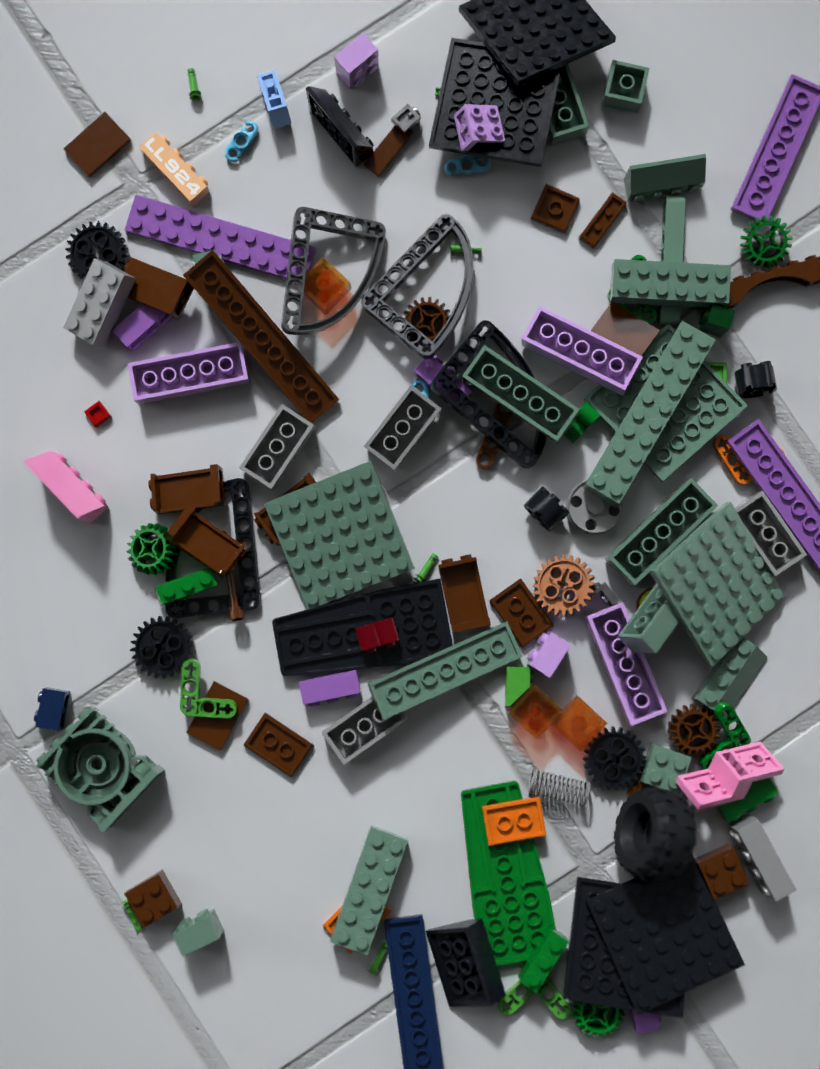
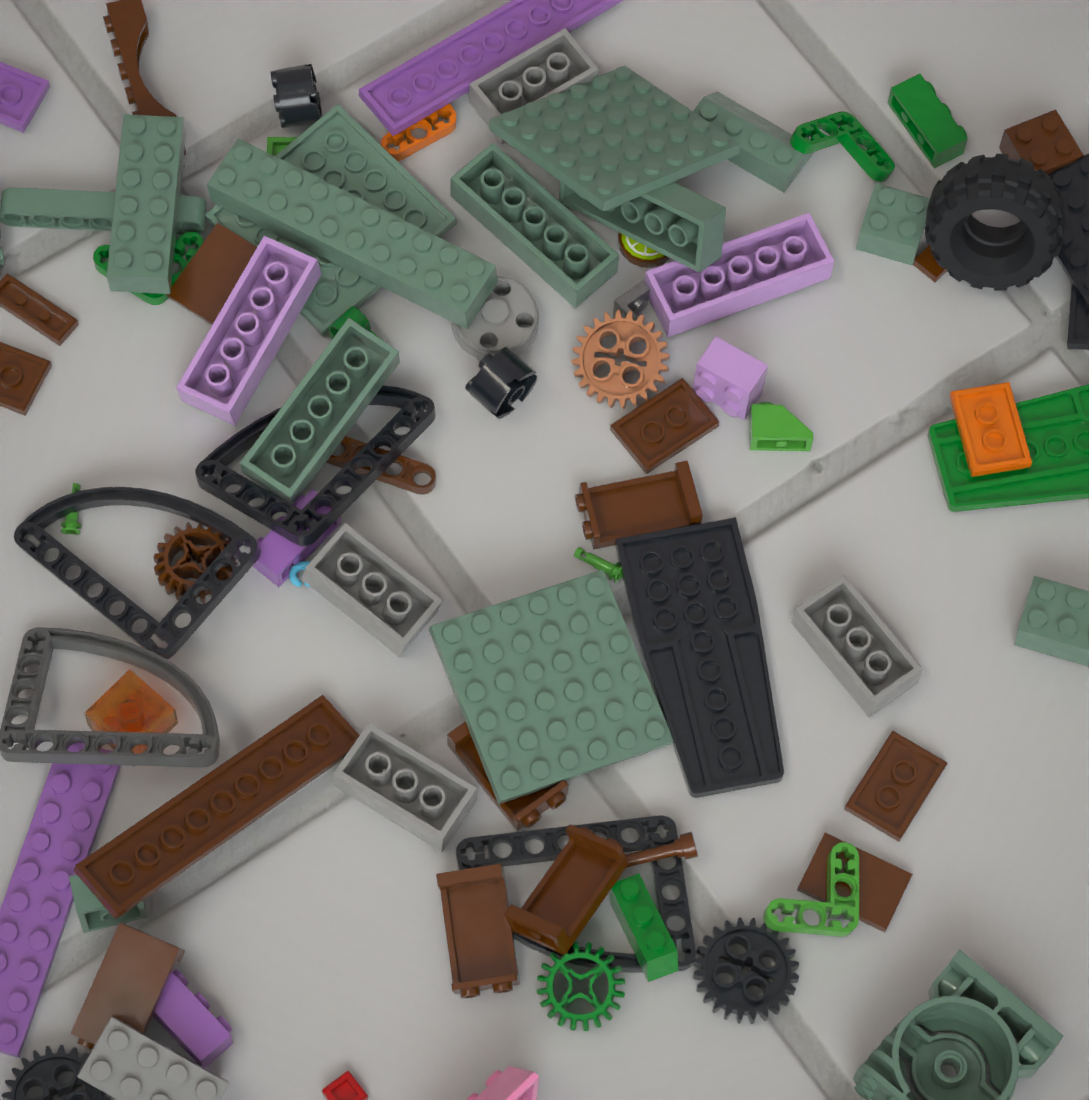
camera: 90 degrees left, 20 degrees down
(188, 373) = (277, 933): lavender brick -> none
(330, 688) = (799, 703): medium lavender brick -> none
(377, 634) = (710, 624): dark red brick -> none
(444, 670) = (763, 525): sand green plate -> none
(534, 711) = (820, 398): clear orange brick -> none
(578, 723) = (833, 341): clear orange brick -> none
(584, 796) = (932, 337): light grey piece -> none
(623, 773) = (883, 293): black gear -> none
(689, 736) = (824, 174): reddish brown gear -> none
(716, 320) = (204, 145): dark green brick -> none
(729, 775) = (899, 131): bright pink bracket -> none
(762, 857) = (1015, 95): light grey brick -> none
(763, 248) = (88, 94): green gear -> none

